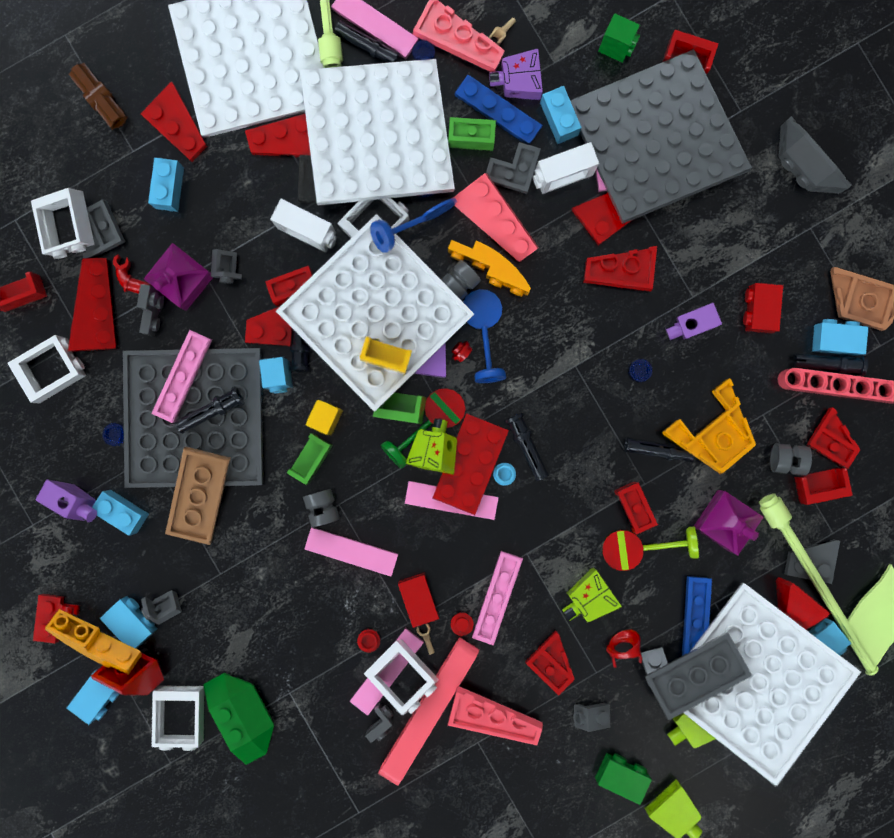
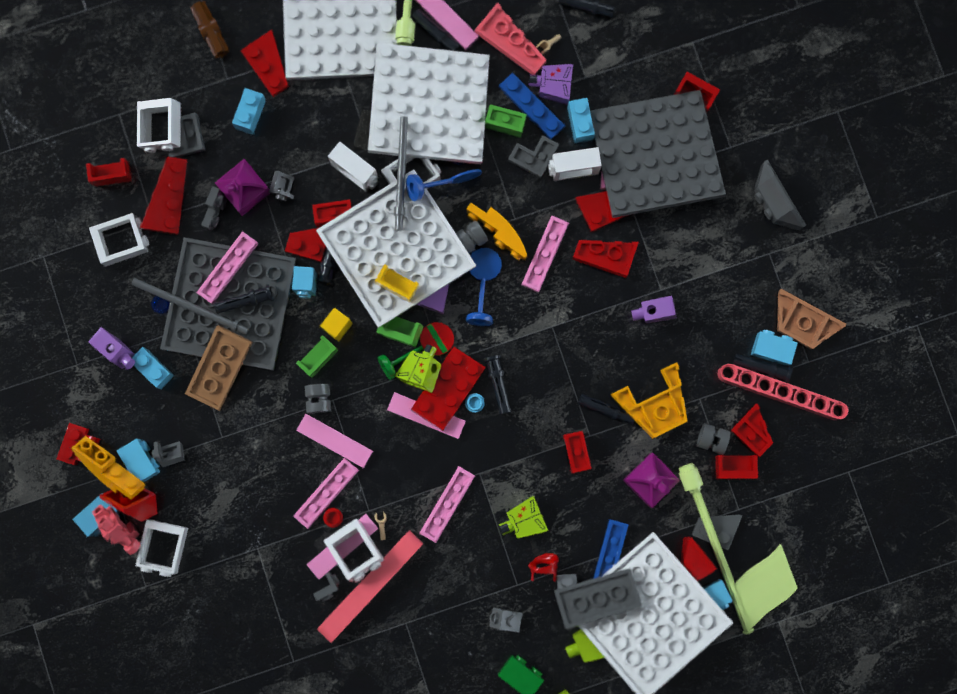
camera: 10 degrees right, 5 degrees down
(119, 711) = (116, 530): none -> coral hips
(125, 280) = (198, 180): red piece -> none
(206, 442) = (234, 325): none -> dark grey bar
(239, 716) = (213, 558): green wedge -> none
(280, 138) = (349, 92): red wing -> none
(354, 614) = (326, 493): none -> bright pink tile
(370, 267) = (399, 210): none -> dark grey bar
(418, 600) = (381, 491): red panel -> none
(423, 50) = (480, 46): clear blue plate -> none
(461, 351) = (460, 294): red plate -> none
(462, 624) = (413, 519): red plate -> none
(491, 718) = (418, 601): coral wing -> none
(492, 213) = (510, 190): coral wing -> none
(550, 282) = (545, 253): none -> bright pink tile
(552, 664) = (481, 568): red wing -> none
(619, 38) = (640, 69): green brick -> none
(625, 550) = (562, 486): piece -> none
(640, 370) = (605, 341): clear blue plate -> none
(763, 308) = (715, 310): red brick -> none

